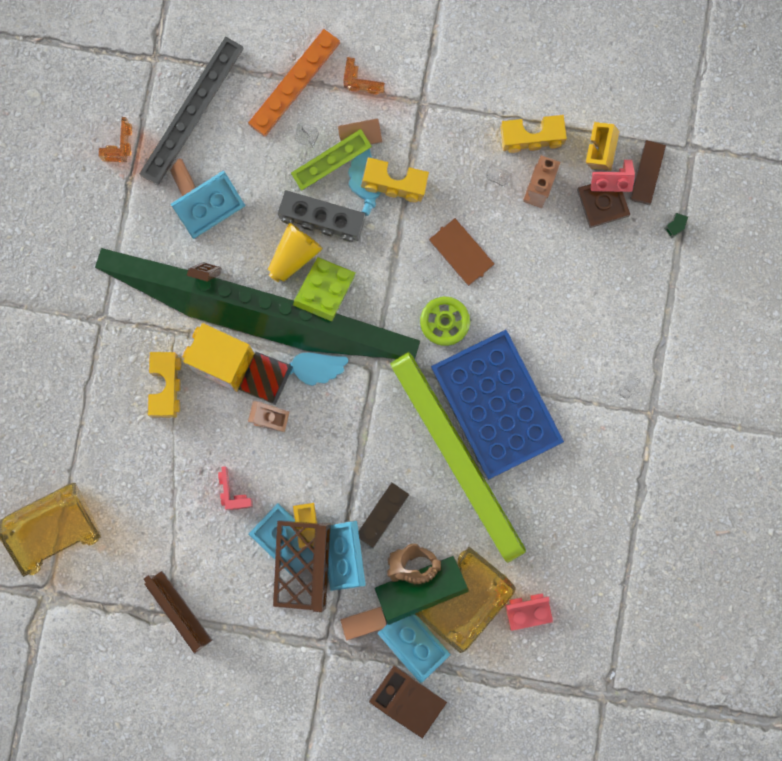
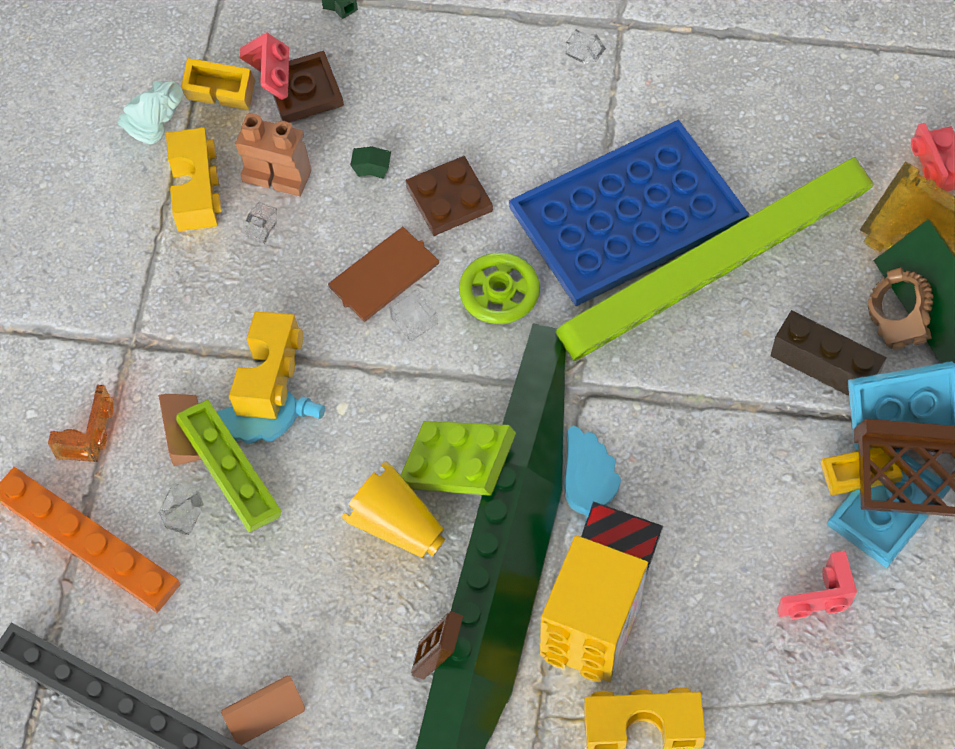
camera: 90 degrees left, 20 degrees down
(208, 204) = (307, 661): medium azure tile -> none
(268, 416) = (683, 543): nougat slope -> none
(293, 201) = (334, 425): dark grey brick -> none
(516, 293) = (449, 195): none -> reddish brown plate
(542, 243) = (370, 161): none -> dark green piece
(583, 104) = (148, 111): none -> light aqua hair
(648, 172) = (237, 32): reddish brown tile -> none

